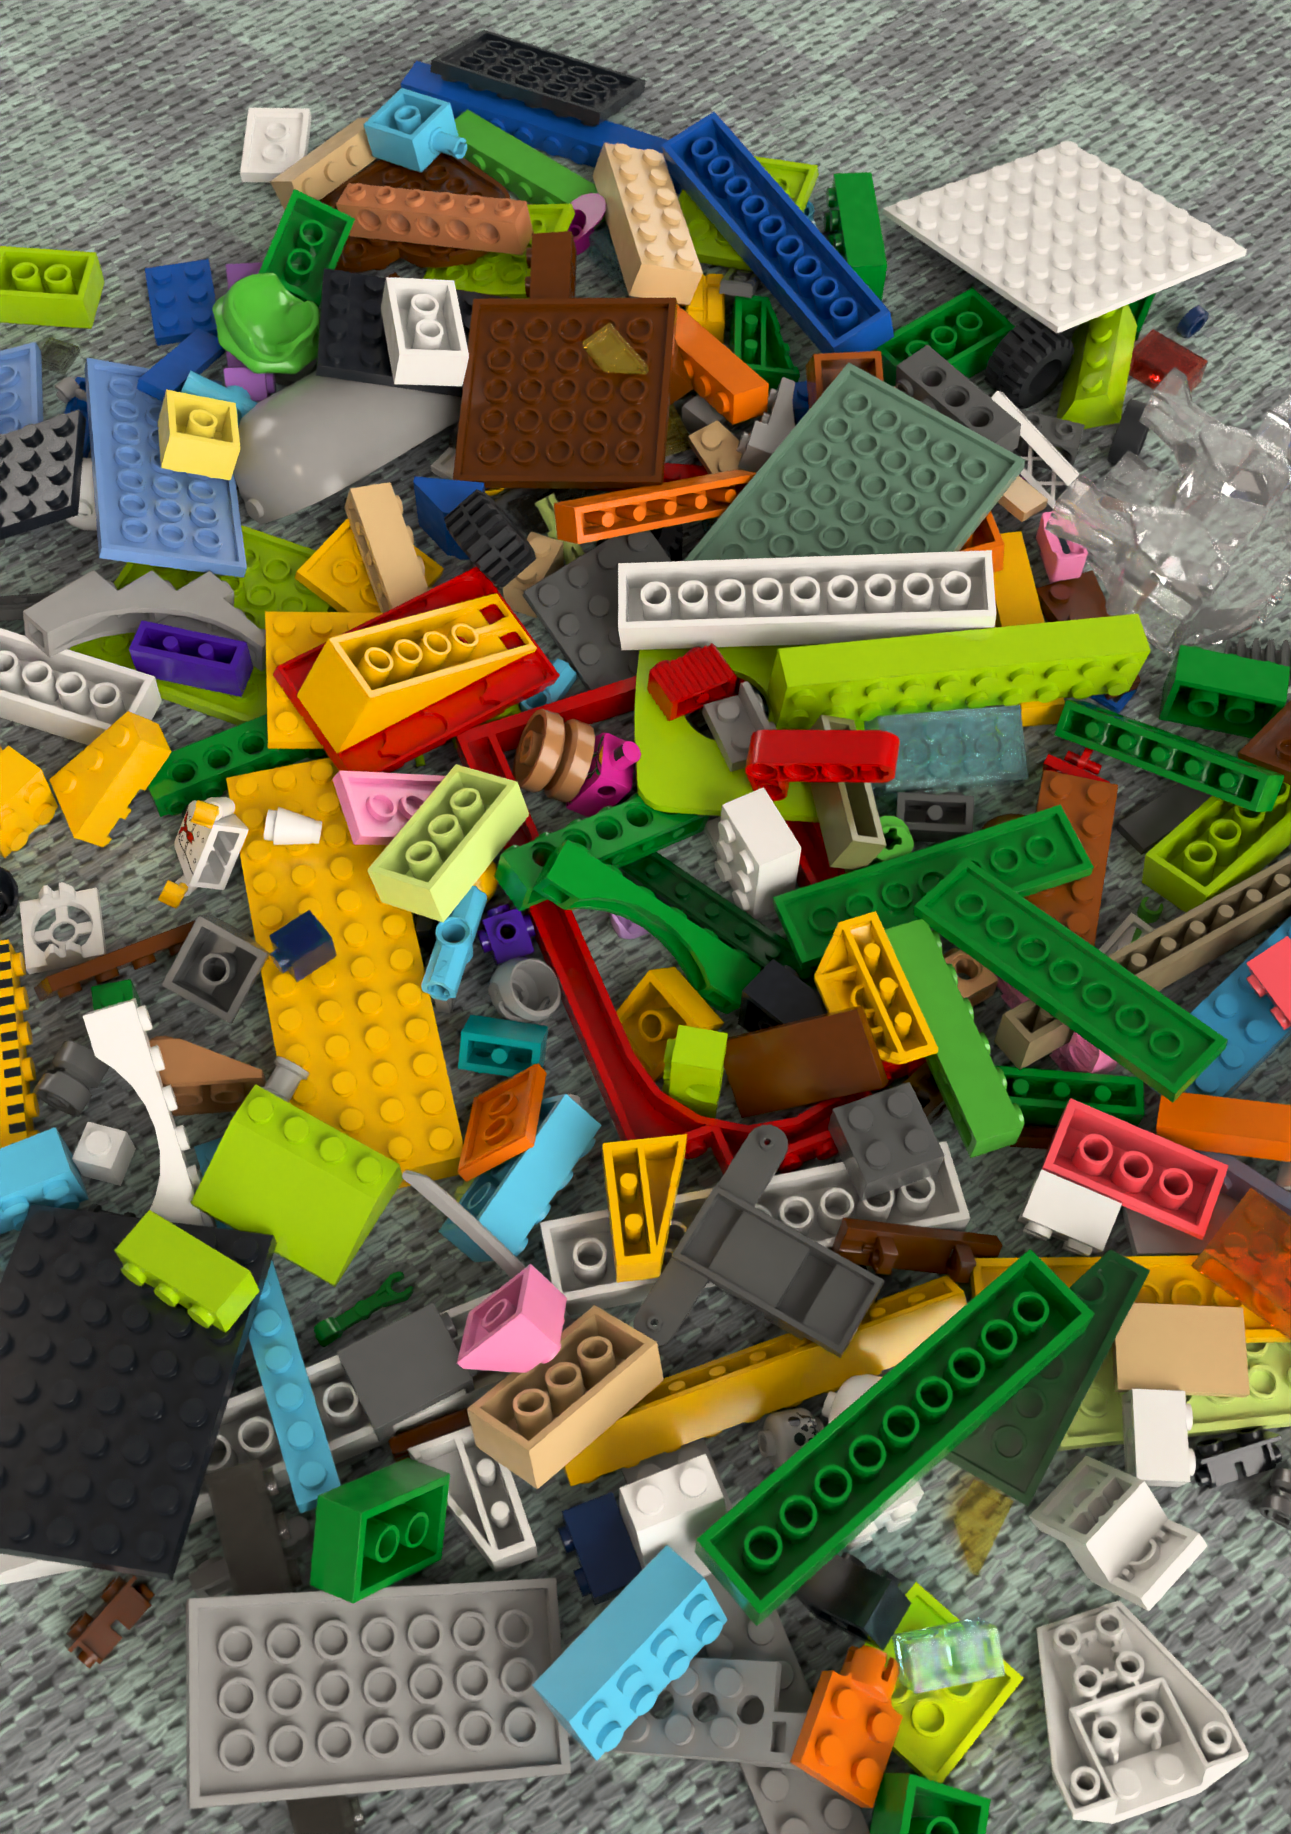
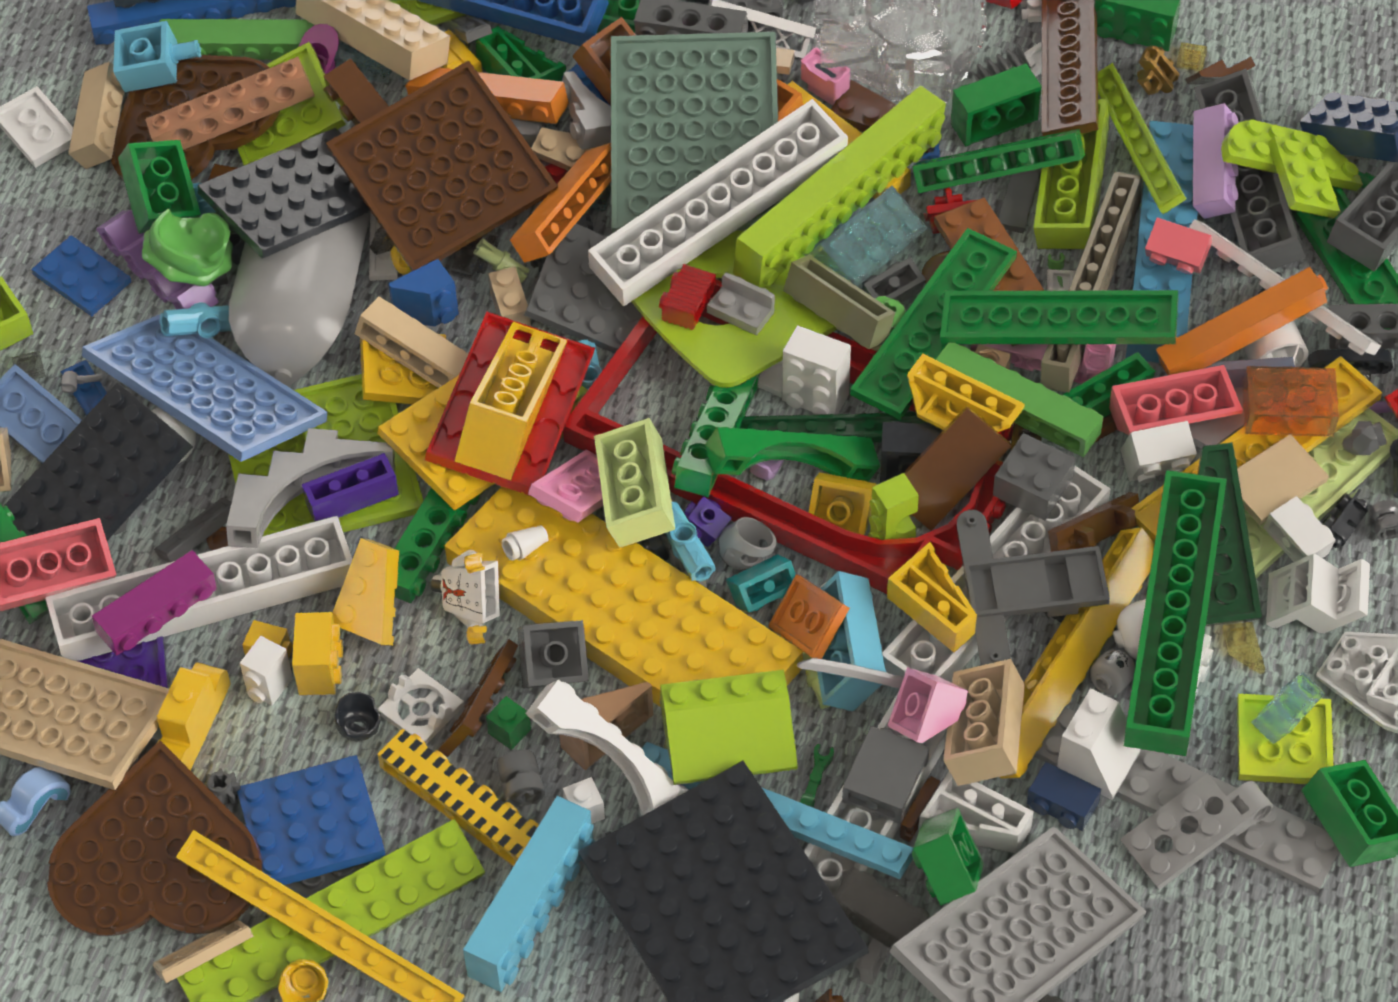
camera: 35 degrees left, 5 degrees down
(170, 373) = (140, 314): blue tile -> none
(186, 1272) = (721, 804): lime brick -> none
(198, 435) = (216, 347): light yellow brick -> none
(285, 1078) = (663, 674): light grey bush -> none
(302, 946) = (601, 601): clear blue brick -> none
(424, 332) = (316, 184): white brick -> none
(489, 538) = (481, 288): black tyre -> none
(554, 755) = (636, 395): medium nougat wheel -> none
(608, 776) = (672, 390): dark pink torso -> none
(613, 352) = (458, 121): clear yellow tile -> none
(631, 1652) = (1133, 819): medium azure brick -> none
(819, 756) = (816, 286): red beam -> none
(851, 1726) = (1269, 775): orange plate -> none
(856, 1599) = (1220, 720): black brick -> none

